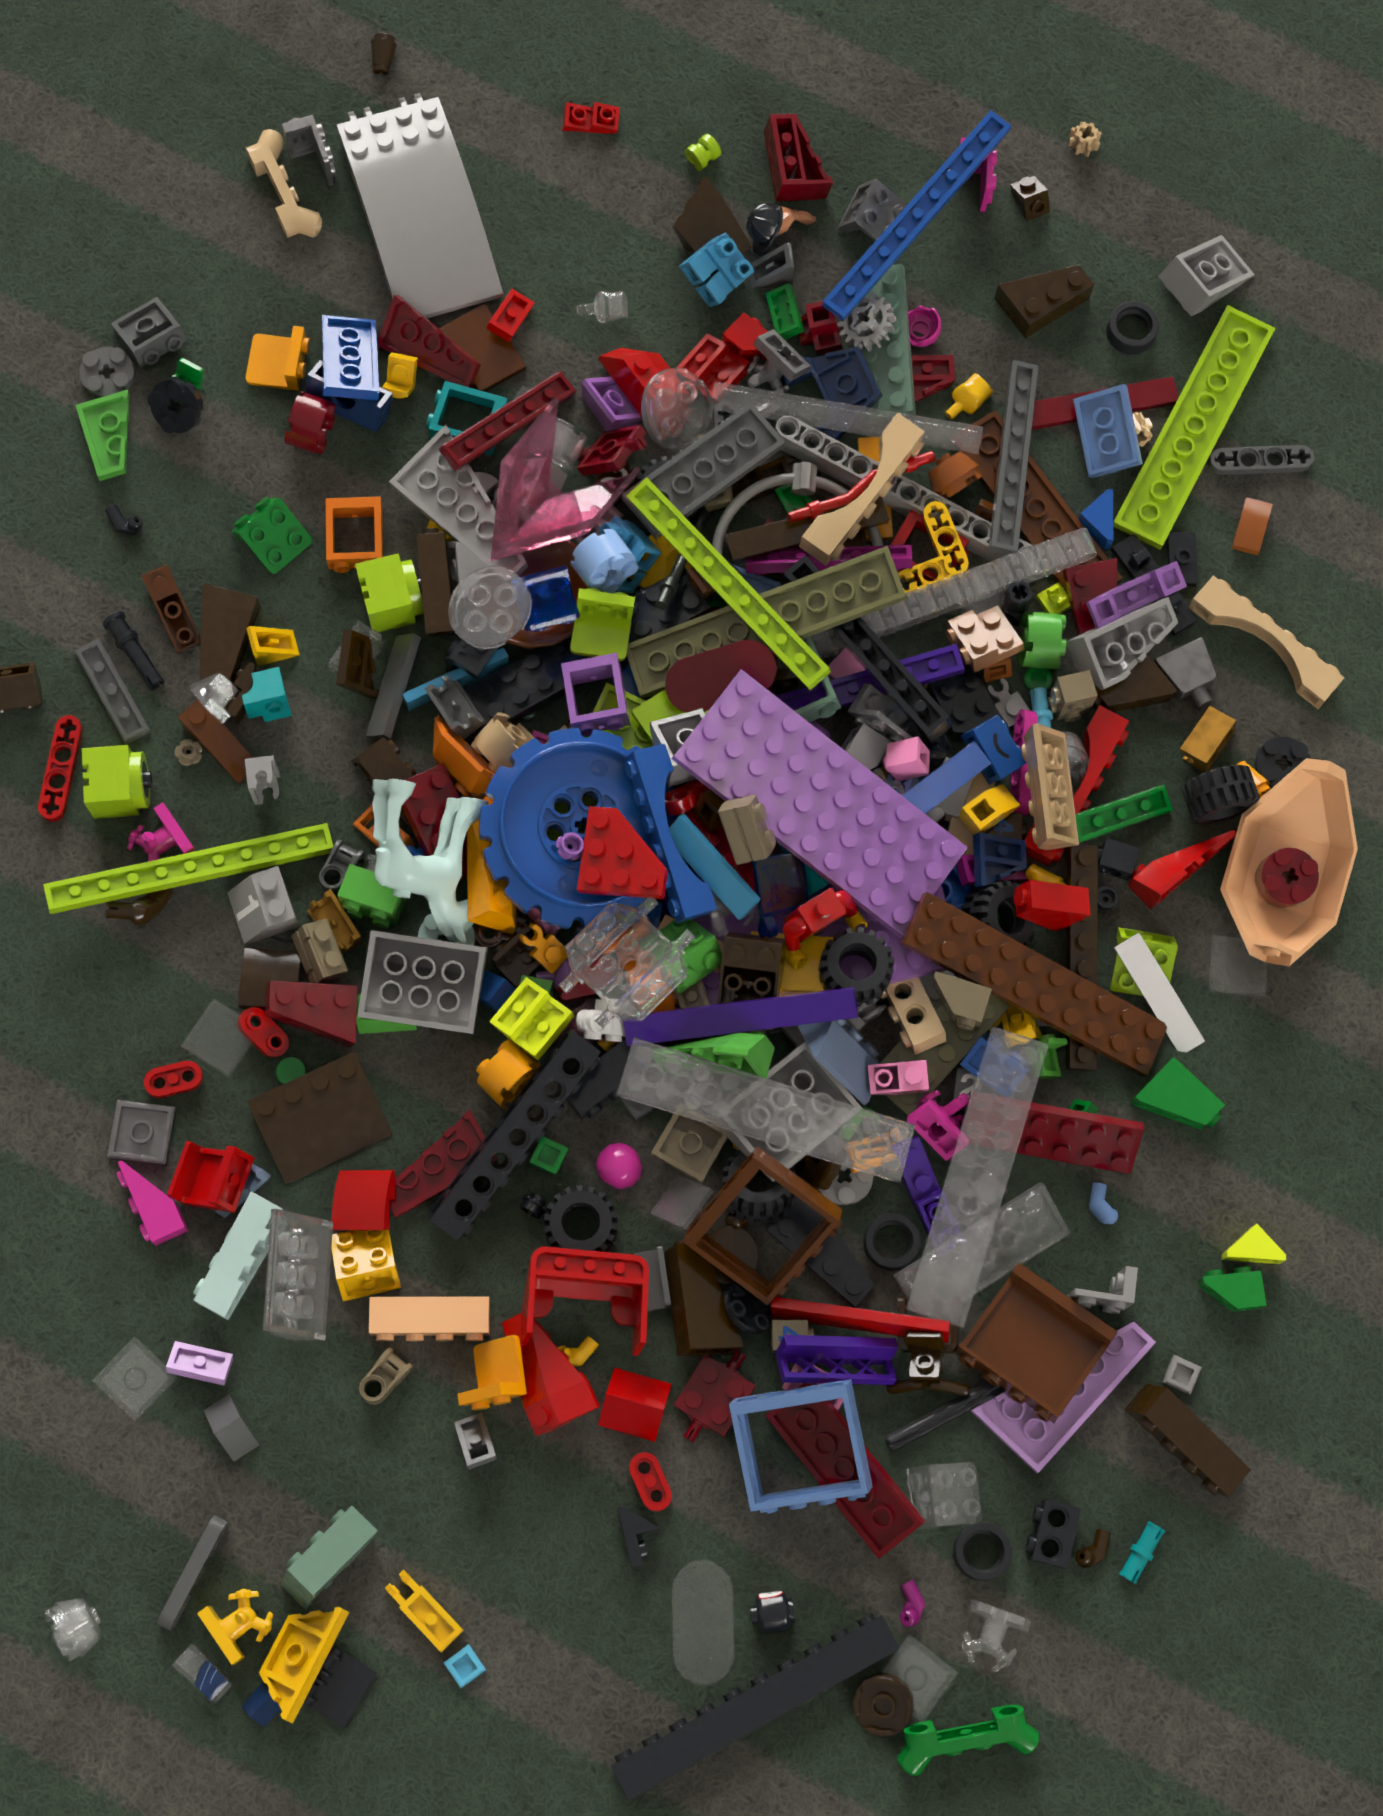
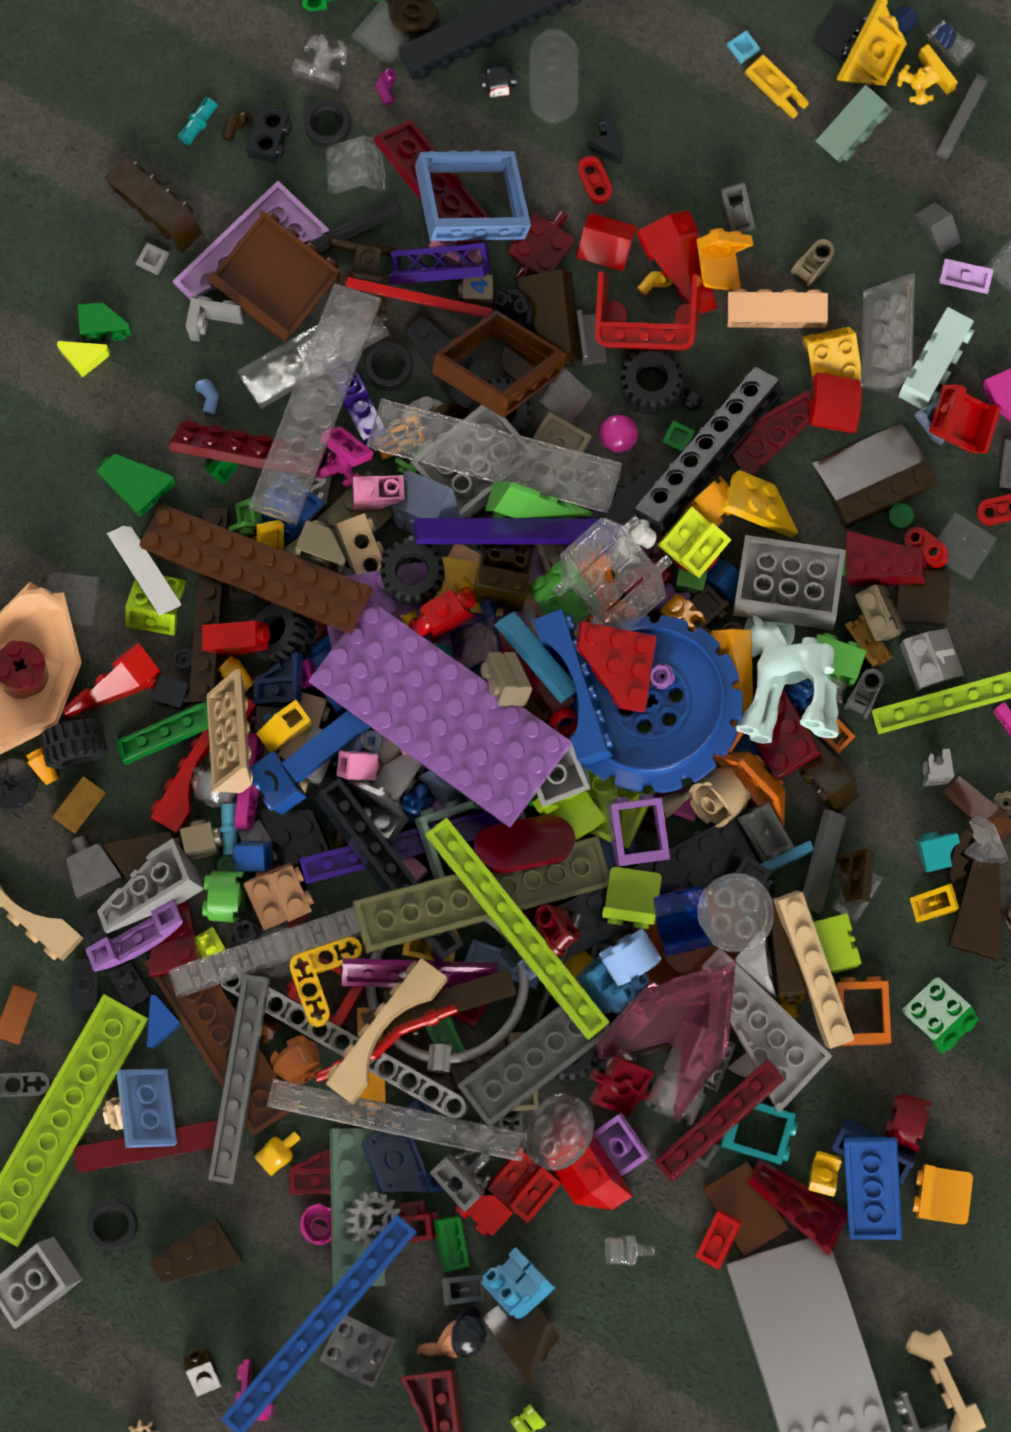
camera: 170 degrees left, 5 degrees up
(407, 555) = (815, 969): none -> tan arch
(457, 1074) = (758, 503): none -> yellow wing
(683, 588) = (556, 928): none -> dark red piece
(840, 729) = (416, 802): none -> blue piece
(1013, 681) = (253, 856): none -> blue brick

